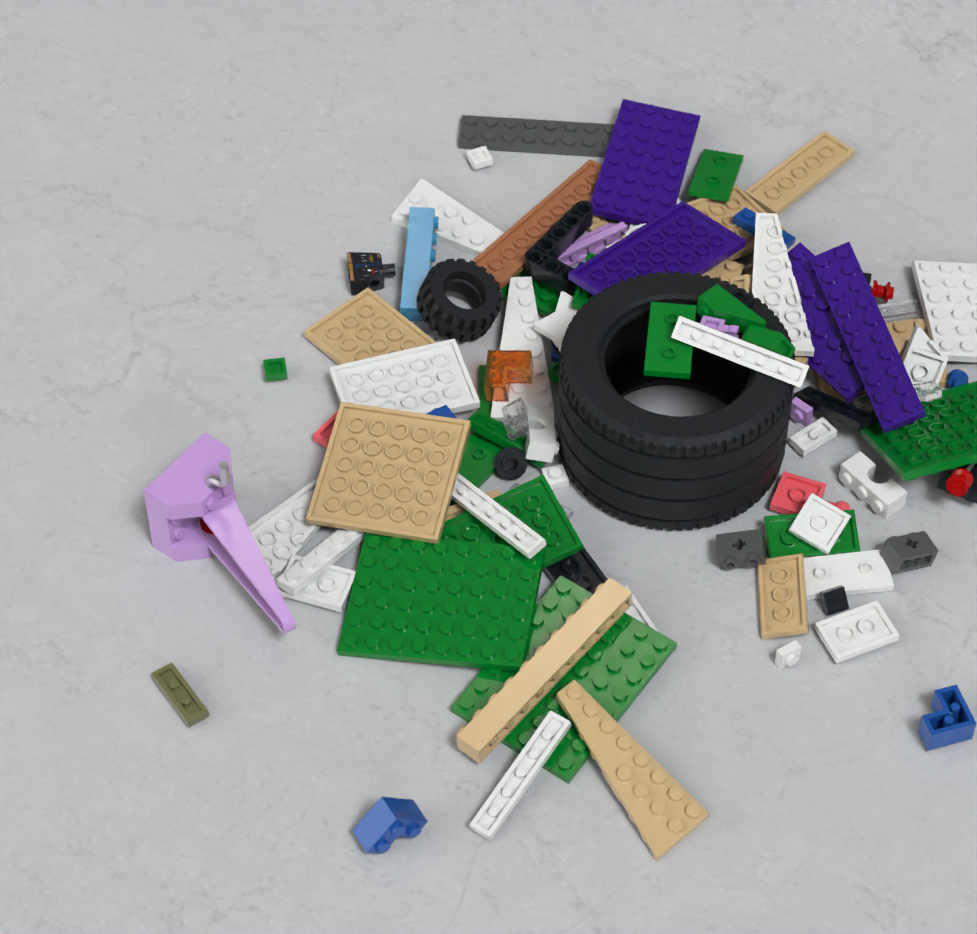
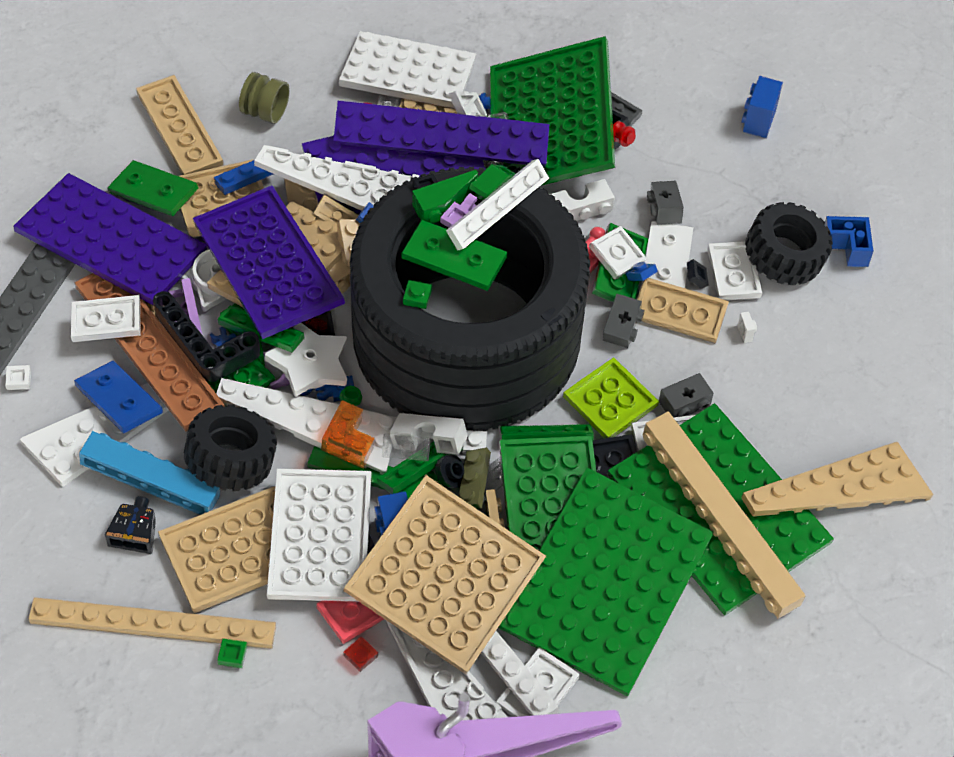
camera: 75 degrees left, 5 degrees up
(287, 316) = (151, 622): none -> tan plate
(306, 452) = (360, 654): none -> clear red plate
(387, 821) = (859, 700): blue brick -> none
(485, 221) = (118, 396): none -> blue plate
(497, 518) = (544, 493): white plate -> none
(504, 481) = (475, 477): none -> olive plate
(520, 775) = (827, 573): white plate -> none
(554, 184) = (105, 318): none -> white plate
(586, 525) = (545, 431): none -> green tile
(613, 326) = (417, 294): none -> green plate
(649, 564) = (610, 399): none -> lime plate
(678, 622) = (686, 396): none -> dark grey brick
(806, 548) = (641, 271): none -> blue plate
(859, 214) = (264, 97): none -> olive wheel
(917, 637) = (798, 226): none -> black tyre

